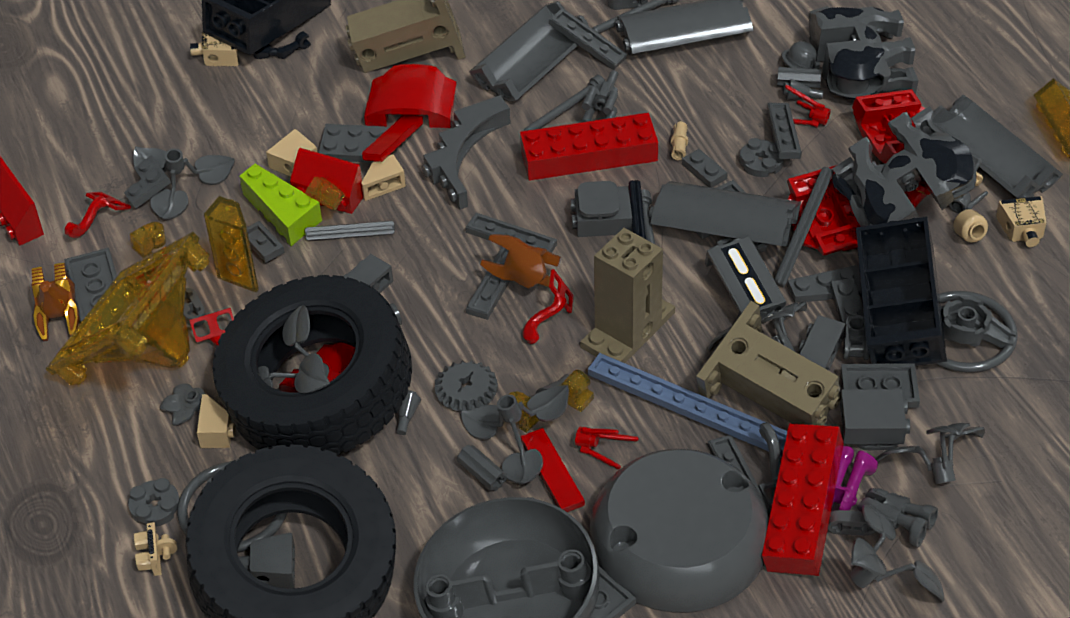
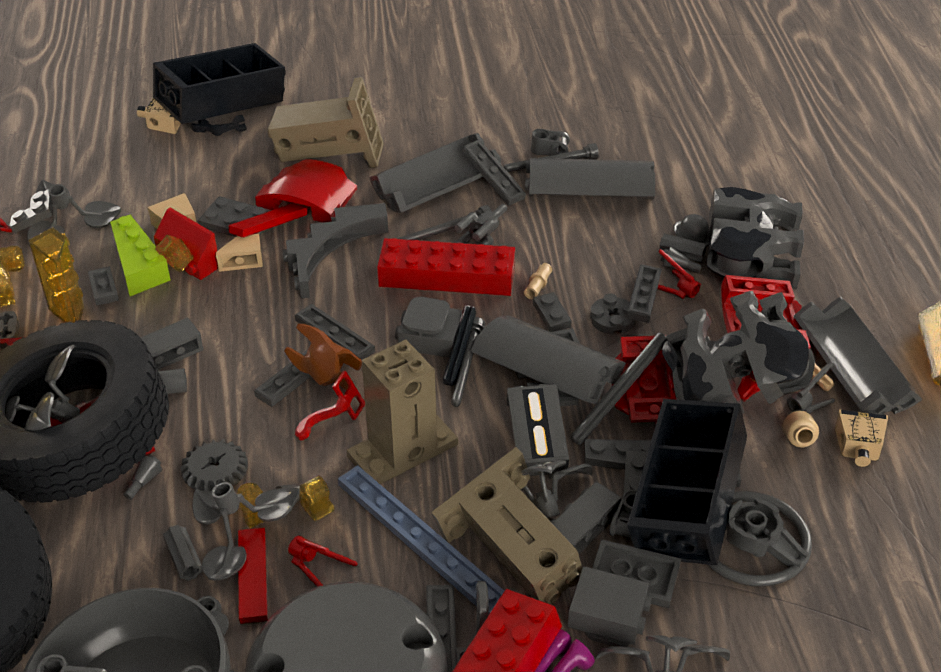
camera: 15 degrees right, 5 degrees down
(349, 230) = (188, 294): dark grey axle -> none

